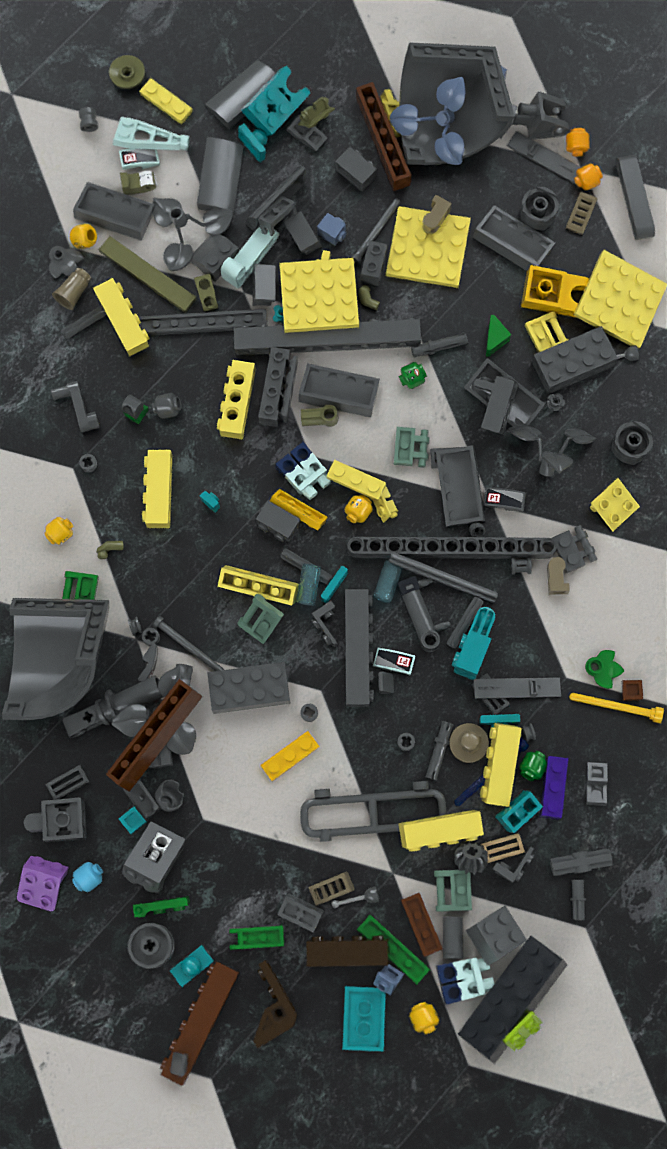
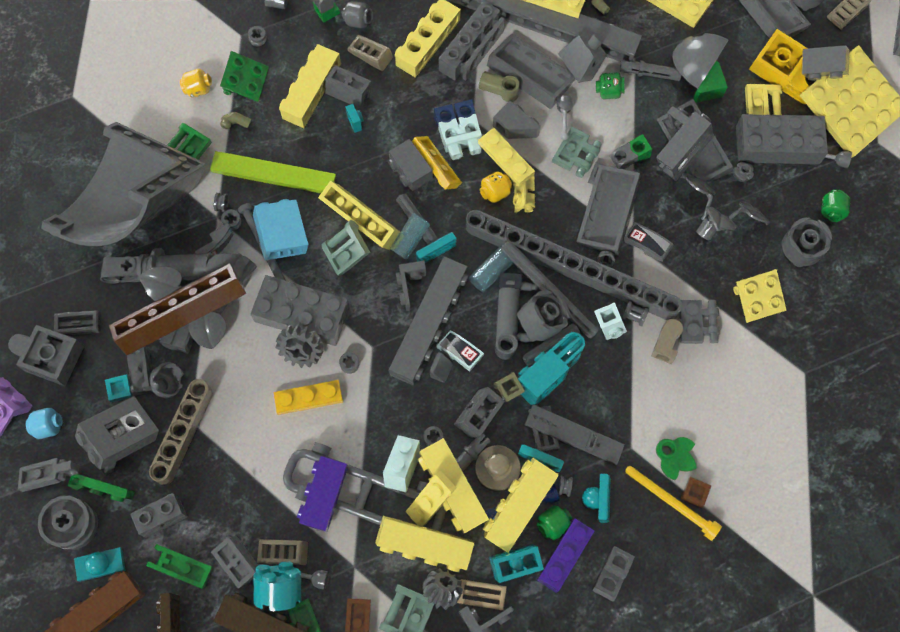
camera: 20 degrees right, 5 degrees down
(97, 506) = (243, 76): none -> green hinge
(111, 916) = (45, 473): none -> dark grey hinge
(164, 580) = (271, 172): none -> lime tile
(191, 475) = (347, 86): none -> dark grey hinge
(197, 627) = (280, 229): none -> medium azure brick
(198, 822) = (182, 442): none -> dark tan beam
(202, 440) = (380, 59): none -> dark tan slope
(220, 905) = (158, 515): none -> dark grey brick
(264, 718) = (299, 346): none -> dark grey gear
(343, 828) = (322, 493): none -> dark purple brick
(343, 916) = (277, 586): none -> teal brick
(347, 445) = (514, 123): none -> dark grey slope
(379, 360) = (584, 56): none -> dark grey torso
(382, 410) = (564, 105): none -> hinge
(393, 775) = (401, 463): none -> light aqua brick
(430, 793) = (431, 499): none -> light yellow plate
(434, 705) = (479, 412): none -> dark grey brick
(442, 774) = (463, 501): none -> light yellow brick
(449, 603) = (543, 316): none -> dark grey brick
(449, 675) = (508, 387): none -> olive leg
(456, 428) = (631, 152): none -> leg
(475, 318) = (697, 56): none -> dark grey brick
(504, 582) = (610, 321): none -> light aqua brick
(559, 730) = (599, 498): none -> teal tile
(584, 280) = (825, 62): none -> dark grey brick
(642, 399) = (835, 205): none -> green head

